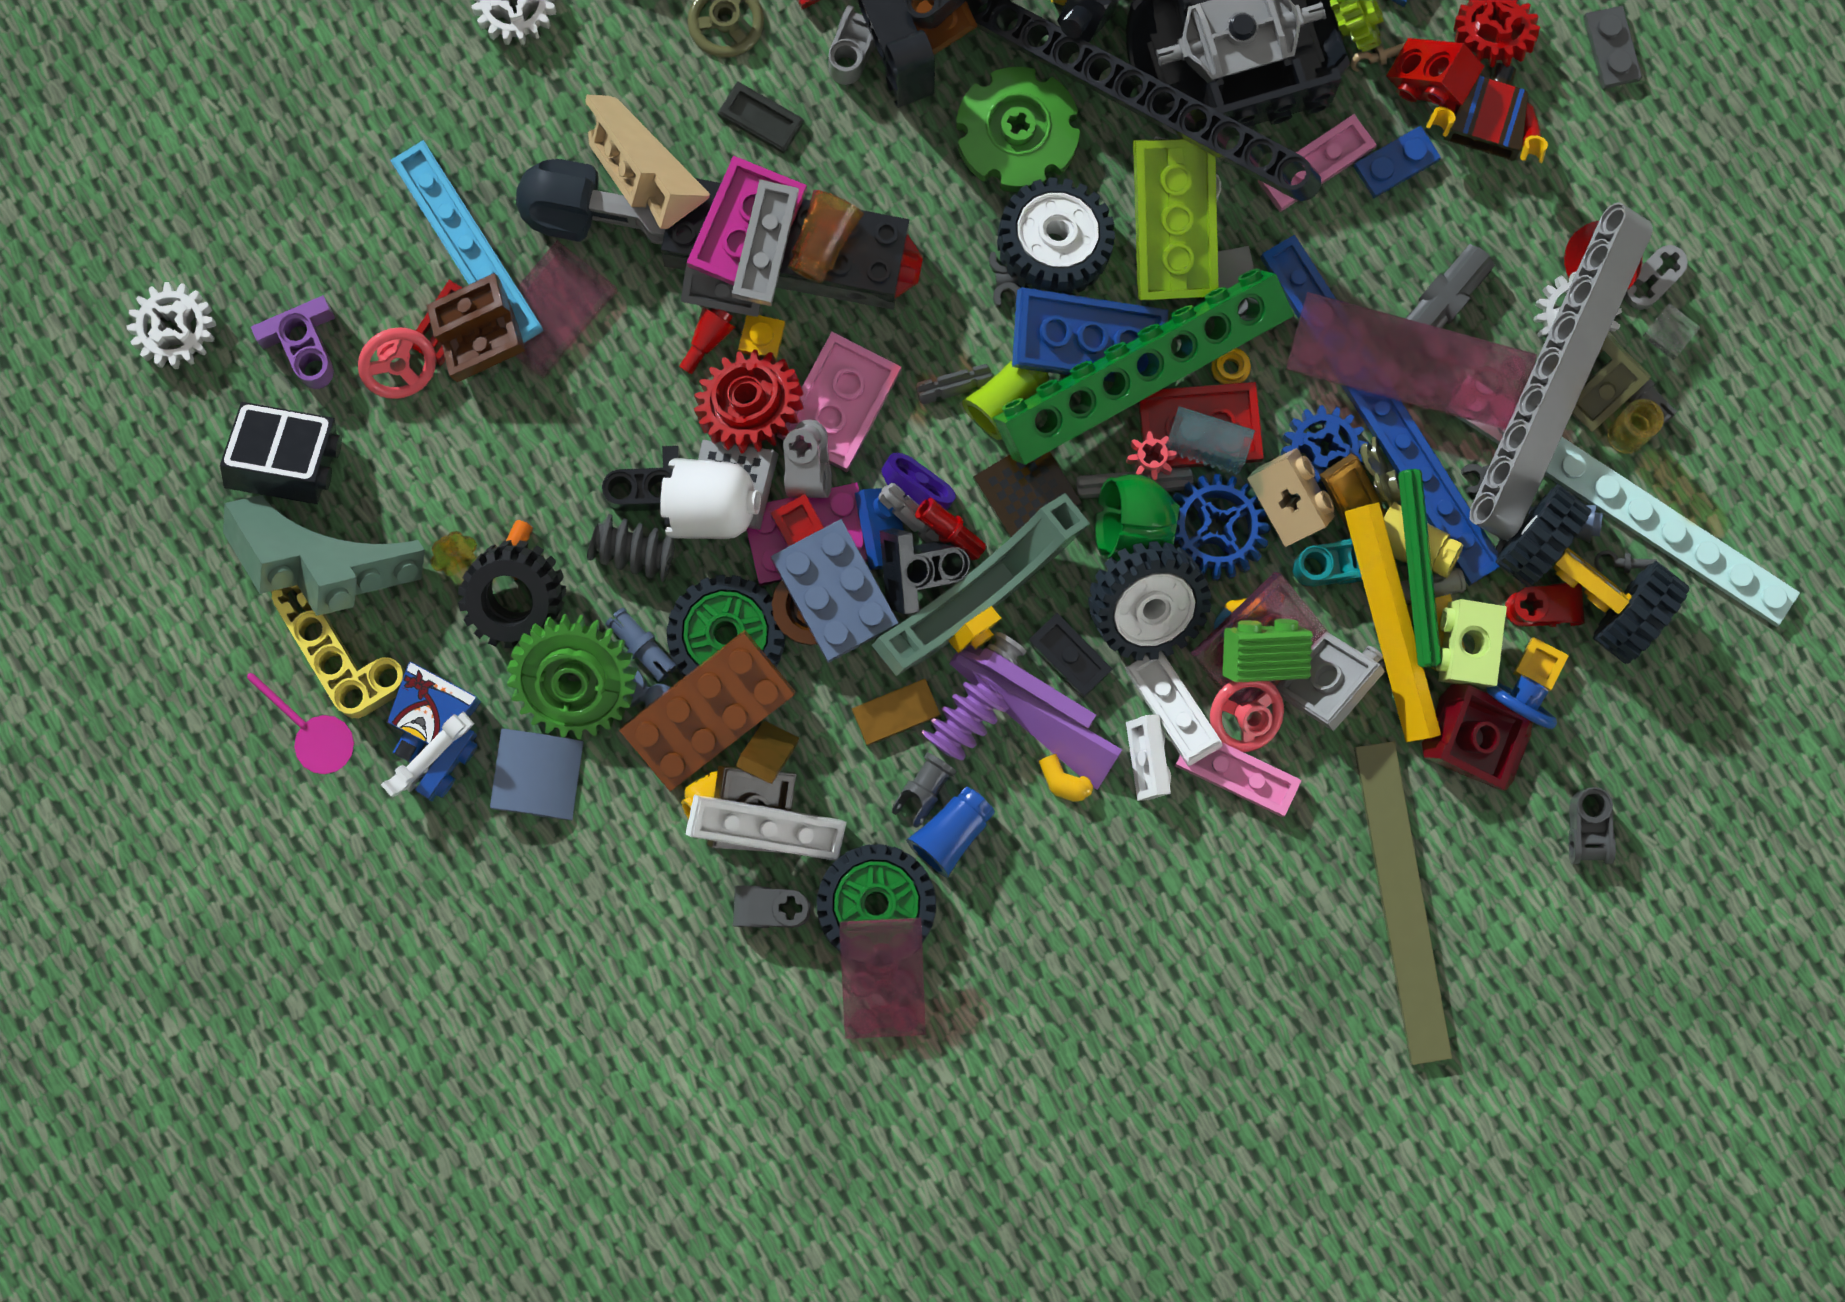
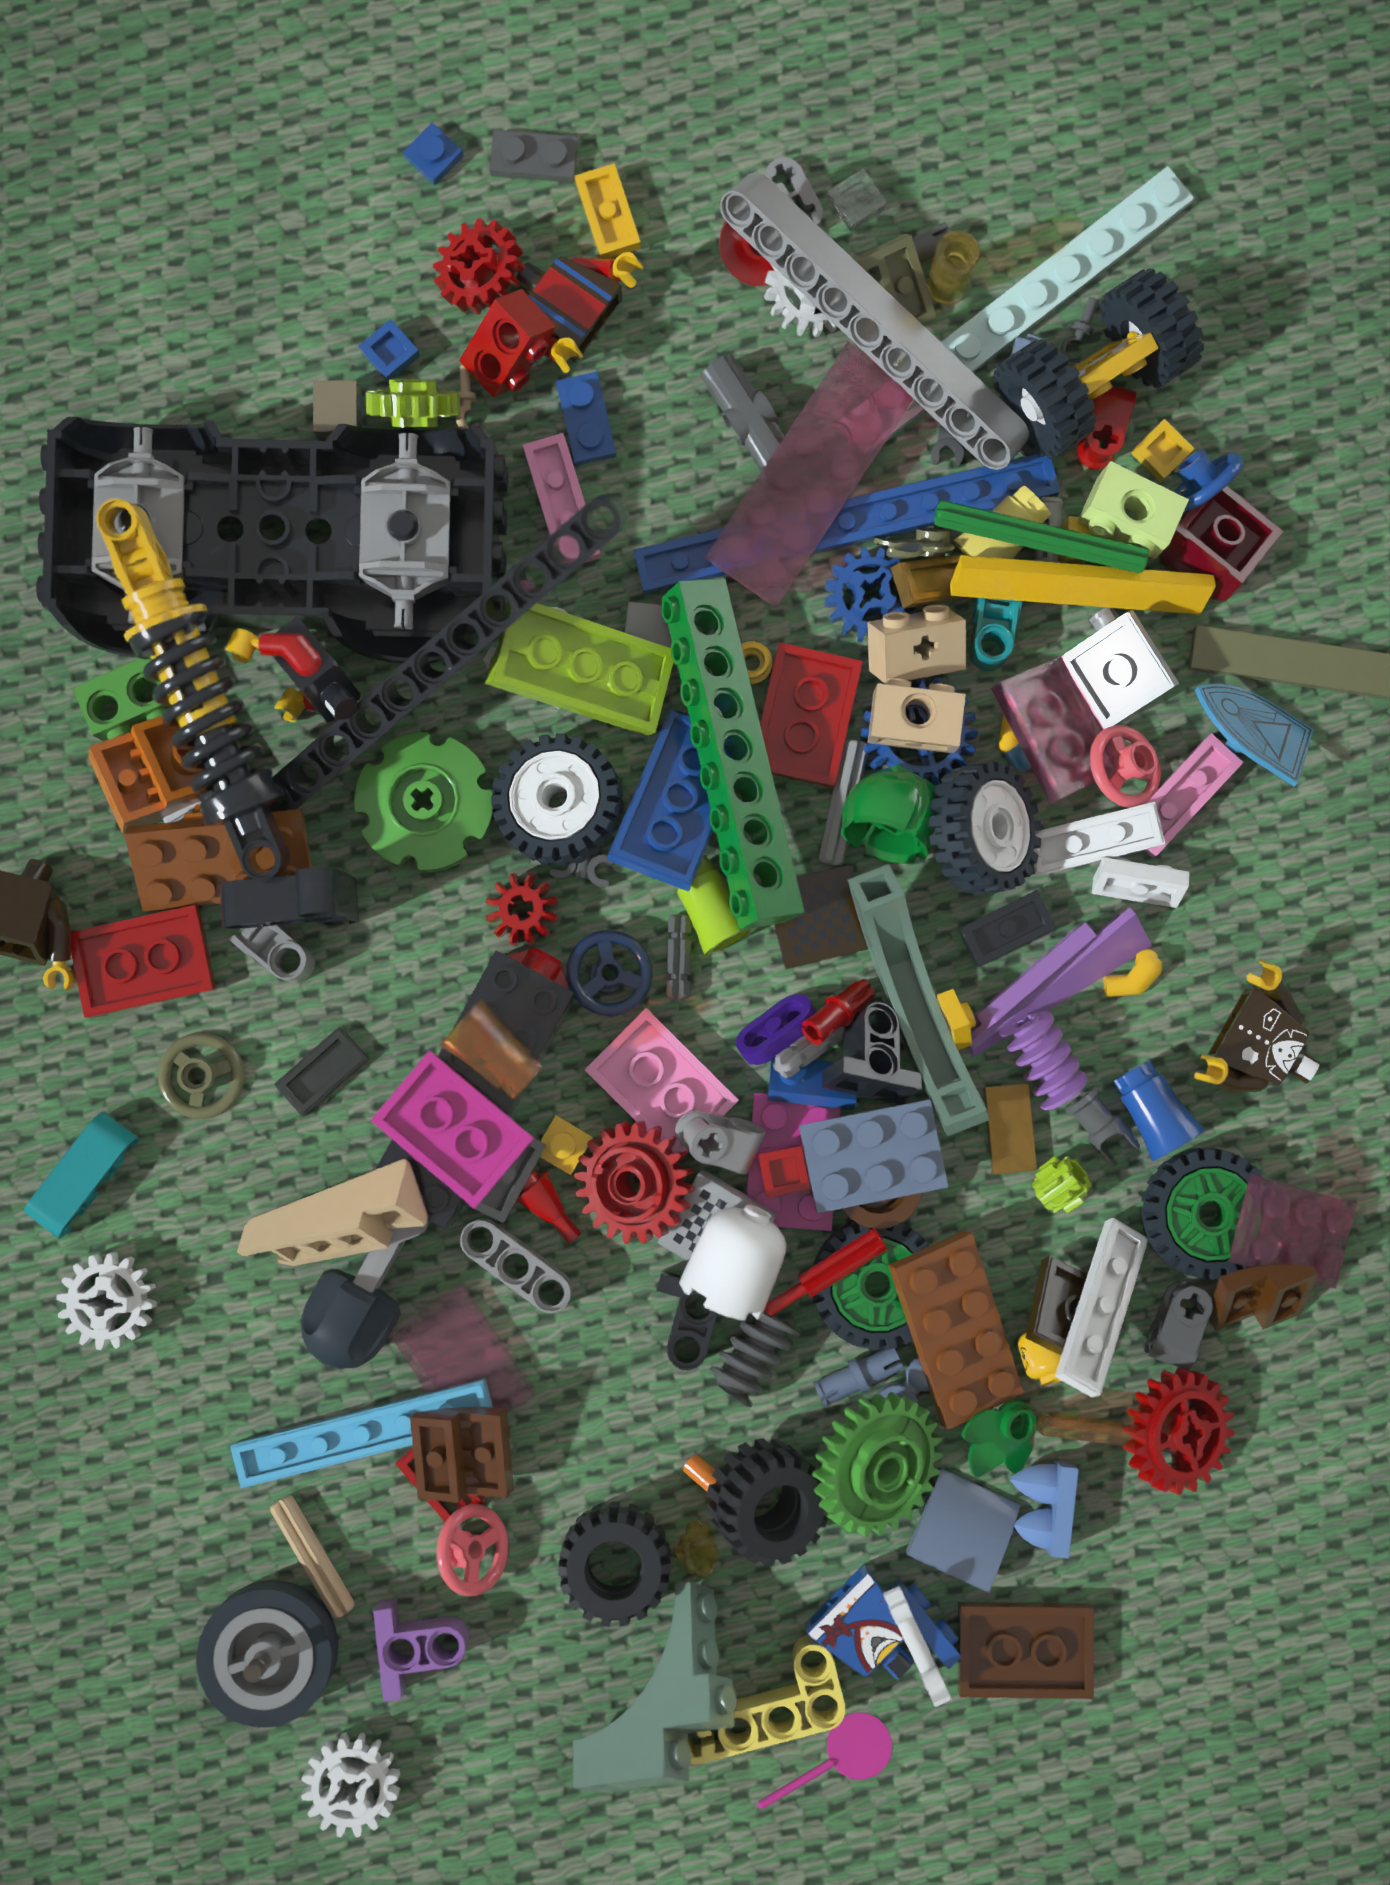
camera: 70 degrees left, 5 degrees up
(261, 222) = (267, 1653): none -> wheel
(280, 453) = (533, 1708): black brick -> none
(350, 236) = (312, 1556): none -> tan axle
(437, 512) = (609, 1601): none -> black tyre
(448, 859) = (1026, 1650): none -> reddish brown plate
(596, 837) = (1055, 1486): none -> medium blue tile
(619, 778) = (1000, 1437): none -> green plate
(644, 309) = (495, 1258): none -> light grey beam
(654, 850) = (1082, 1428): none -> clear orange tile
(655, 949) = (1170, 1426): none -> red gear
(725, 585) = (831, 1269): none -> red axle
(765, 242) = (483, 1116): light grey plate -> none
(767, 752) = (1021, 1279): pearl gold tile -> none
(821, 964) = (1265, 1291): none -> reddish brown slope
(861, 767) = (1061, 1184): none -> lime gear
(920, 354) = (584, 994): none -> dark blue piece
(968, 239) = (514, 921): none -> red gear
(1007, 647) = (981, 993): light grey bush -> none
(1042, 902) = (1260, 1039): none -> dark brown torso
(1147, 447) = (832, 764): coral gear -> none
(1210, 440) = (833, 710): clear light blue brick -> none
(1221, 533) = (892, 728): none -> tan brick
(1267, 652) = (1077, 724): bright green brick -> none
(1318, 818) = (1257, 729): none -> dark azure shield
(1584, 123) = (607, 211): none -> yellow plate
(1591, 830) = (1353, 457): dark grey piece -> none

